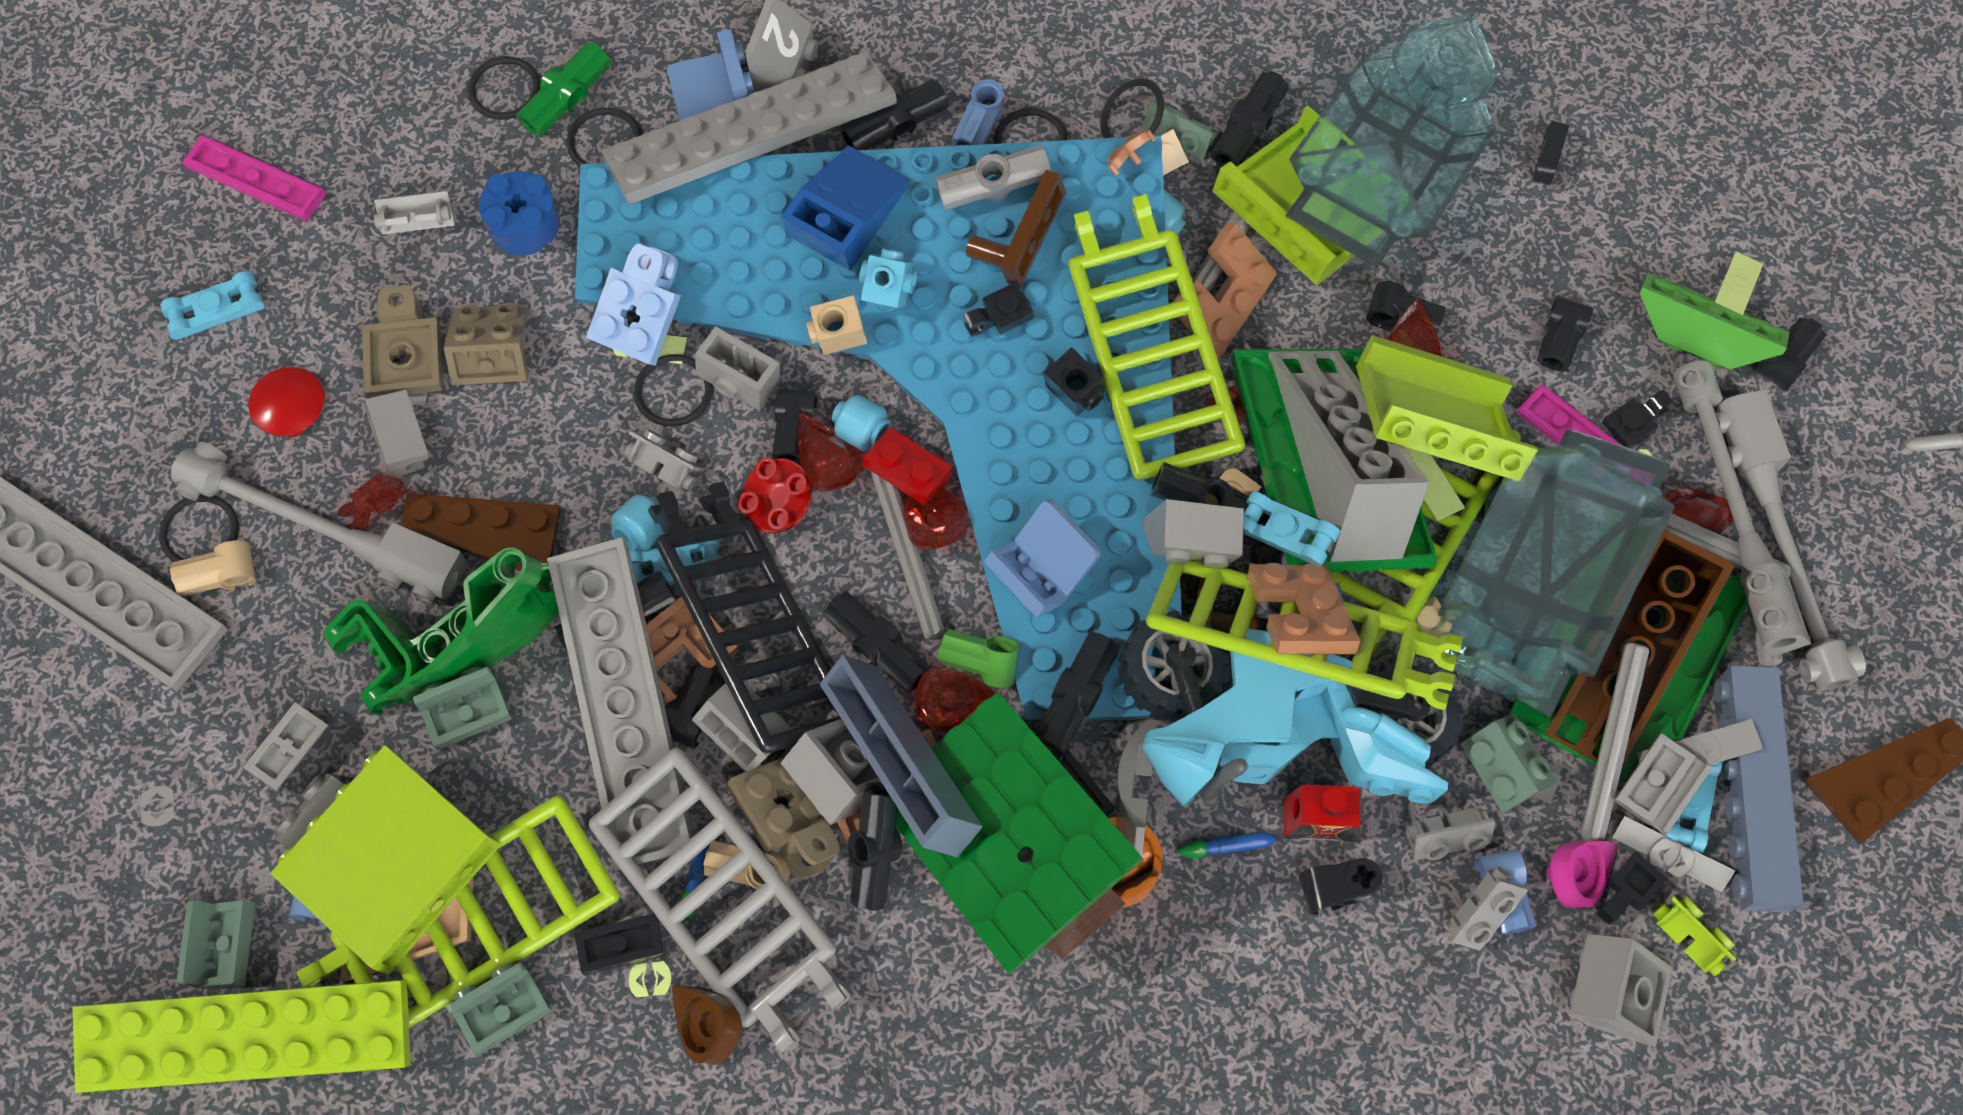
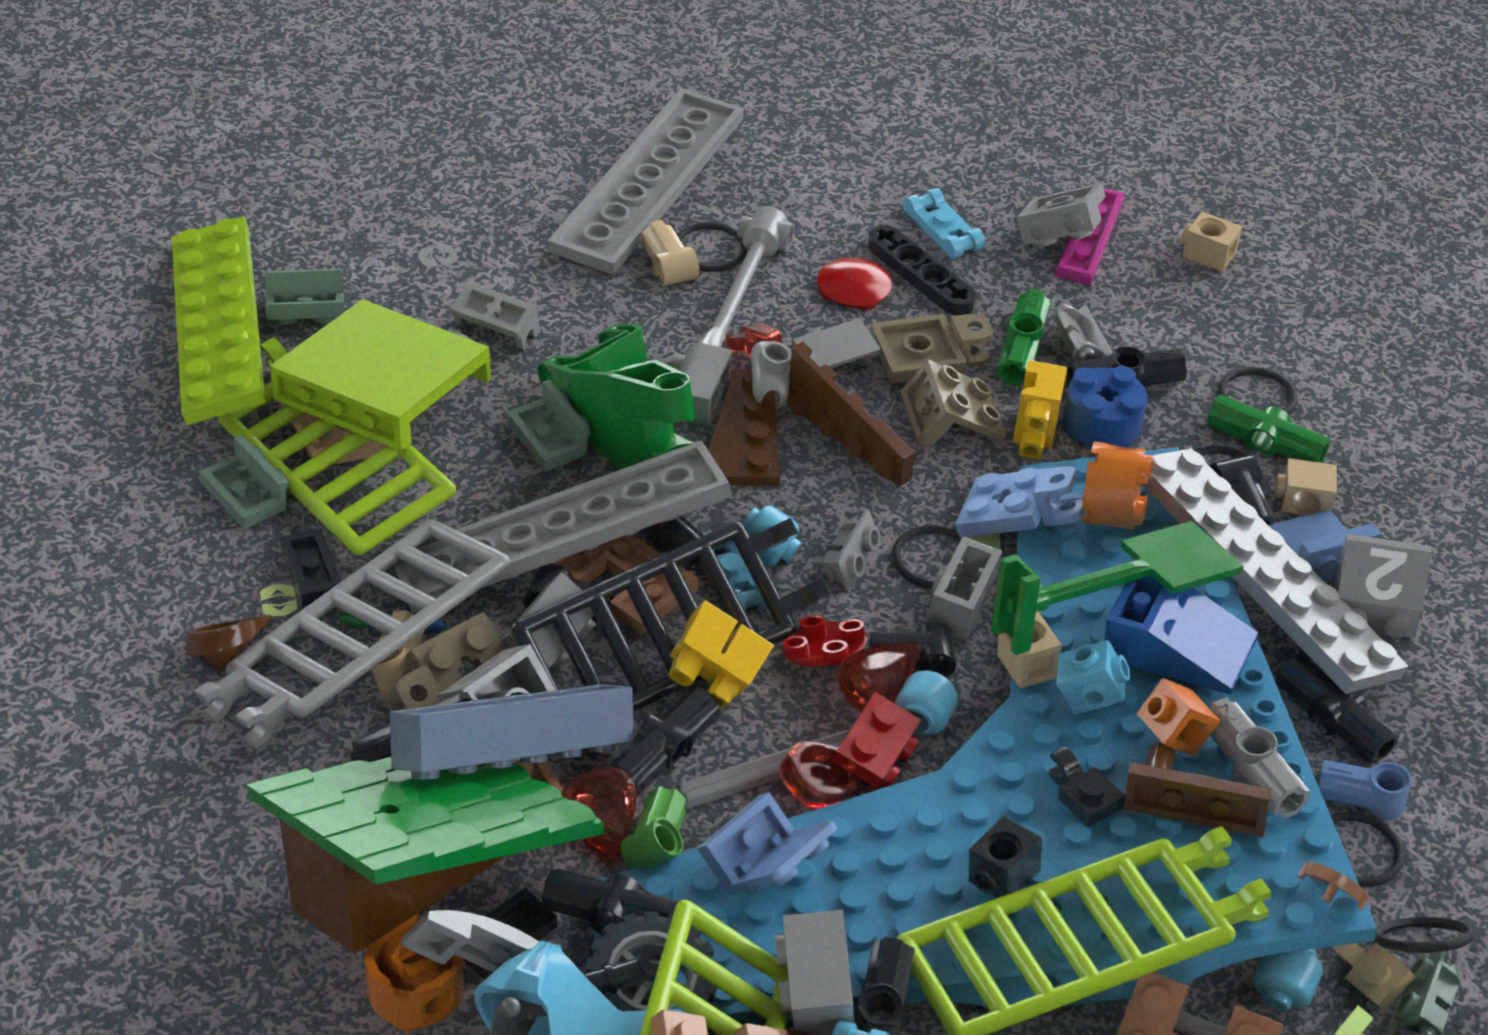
camera: 80 degrees right, 25 degrees down
(236, 193) = (1061, 215): none -> light grey plate
(278, 333) = (925, 268): none -> black beam
(295, 75) = (1211, 241): none -> tan brick
(386, 255) = (1023, 336): none -> green piece
(430, 489) = (770, 370): none -> light grey piece
(465, 169) = (1149, 367): none -> black piece
(490, 444) = (845, 417): none -> reddish brown wing
(519, 261) = (1039, 408): none -> yellow hips
(629, 122) = (1245, 480): none -> black piece
(642, 75) = (1306, 487): none -> tan brick
(660, 215) = (1116, 485): none -> orange brick
(778, 183) = (1174, 556): none -> green piece
(792, 577) = (718, 654): none -> yellow hips
(945, 223) = (1178, 717): none -> orange brick

